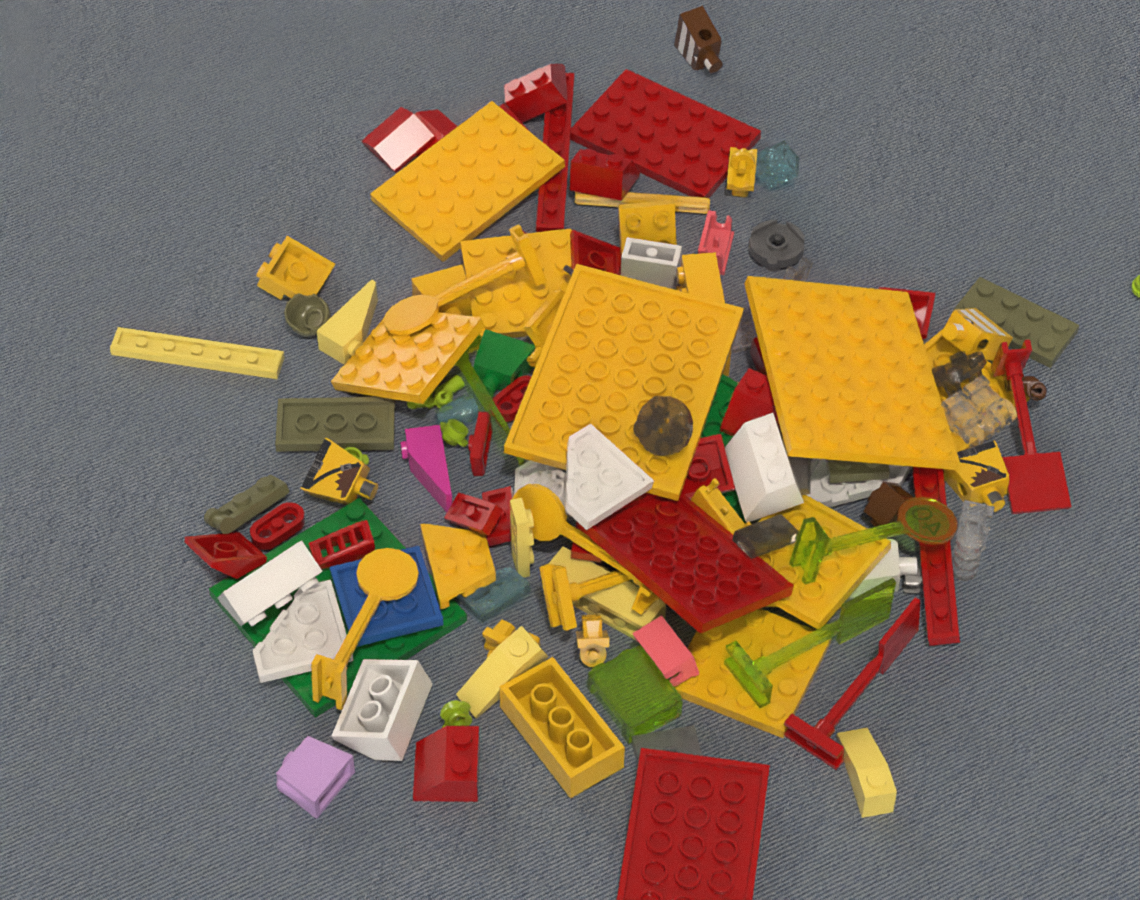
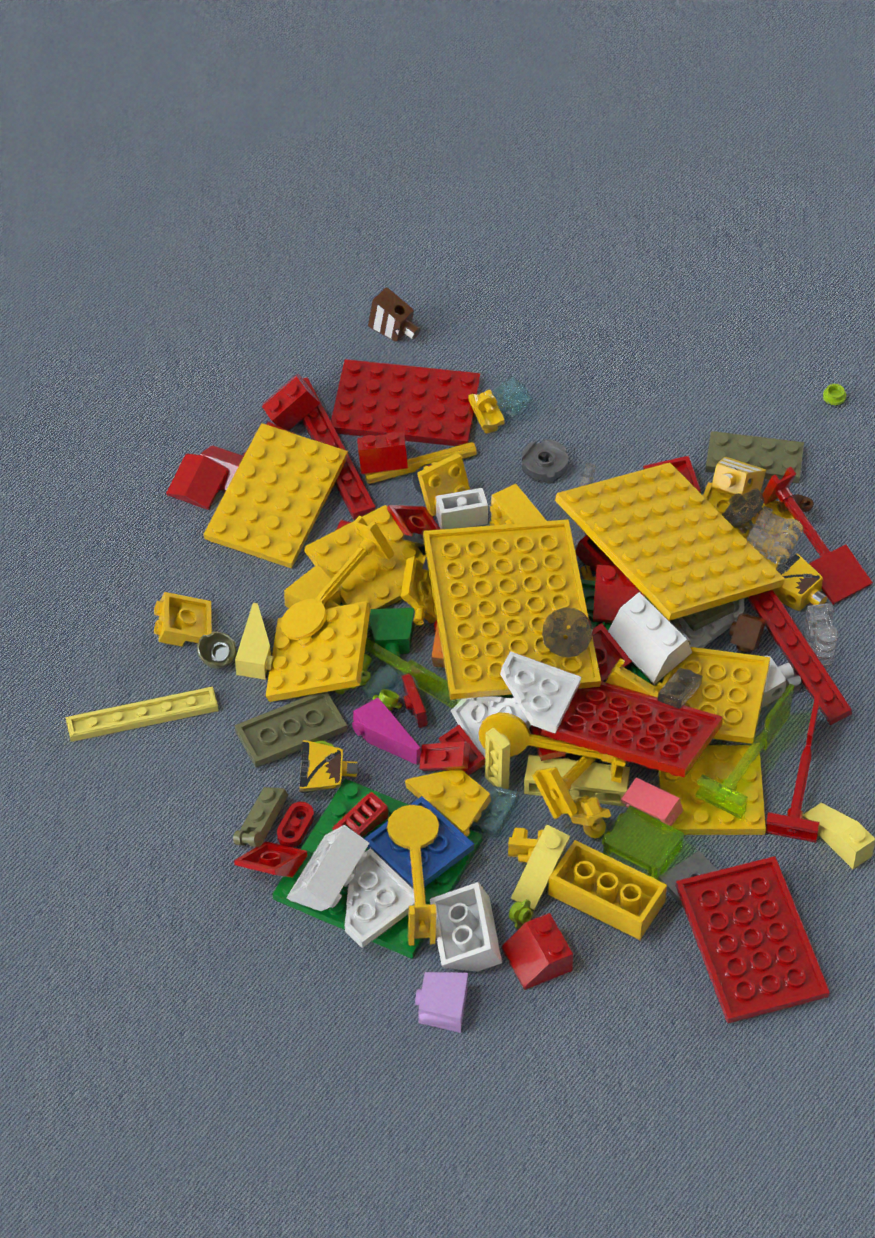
camera: 25 degrees left, 0 degrees up
(510, 398) = (417, 654): red plate -> none
(717, 239) = (496, 472): coral hinge -> none
(917, 517) = (779, 632): clear neon green piece -> none

